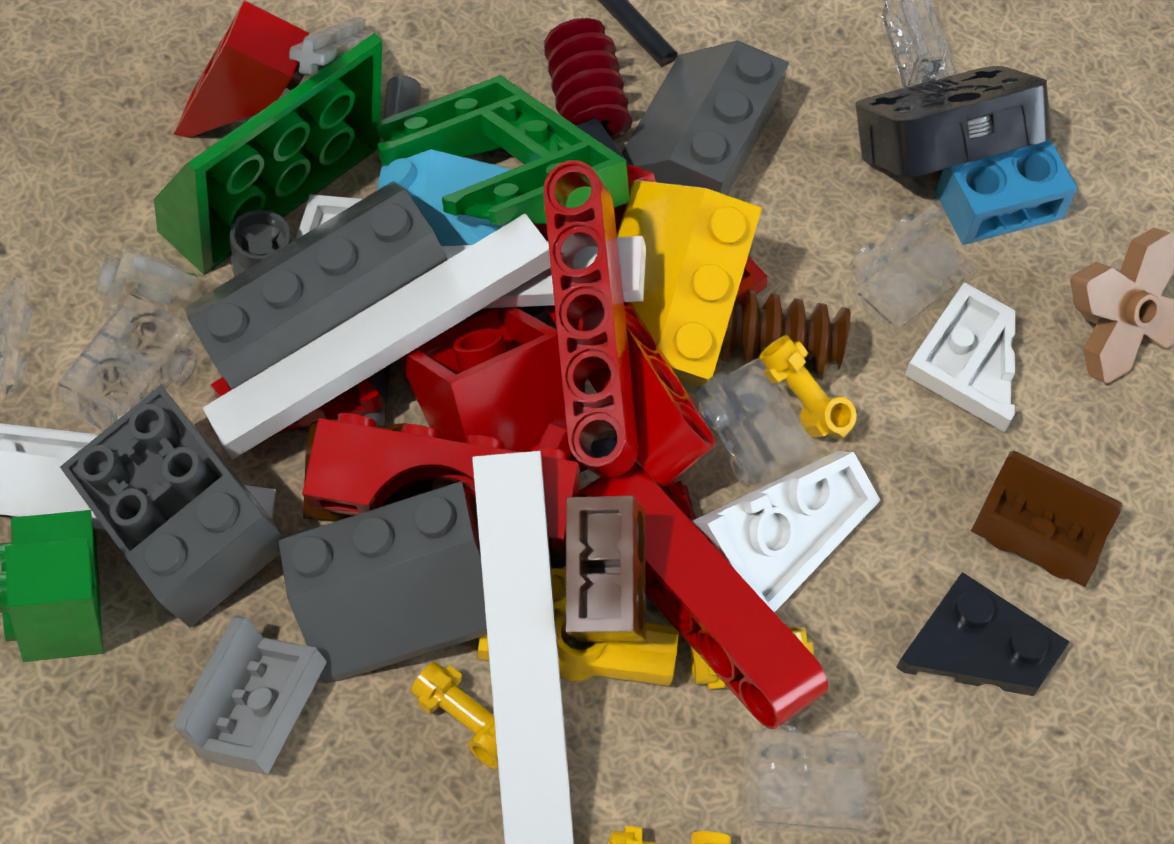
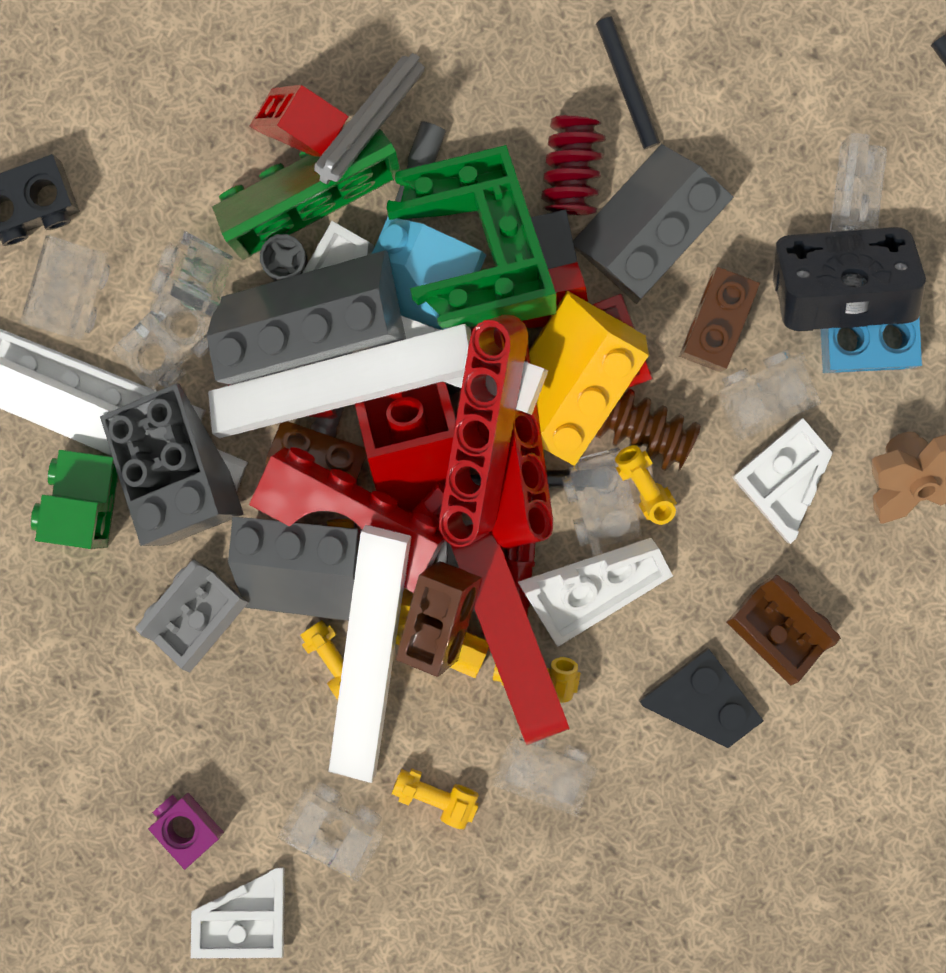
camera: 25 degrees right, 30 degrees up
(821, 201) = (719, 319): none -> reddish brown brick

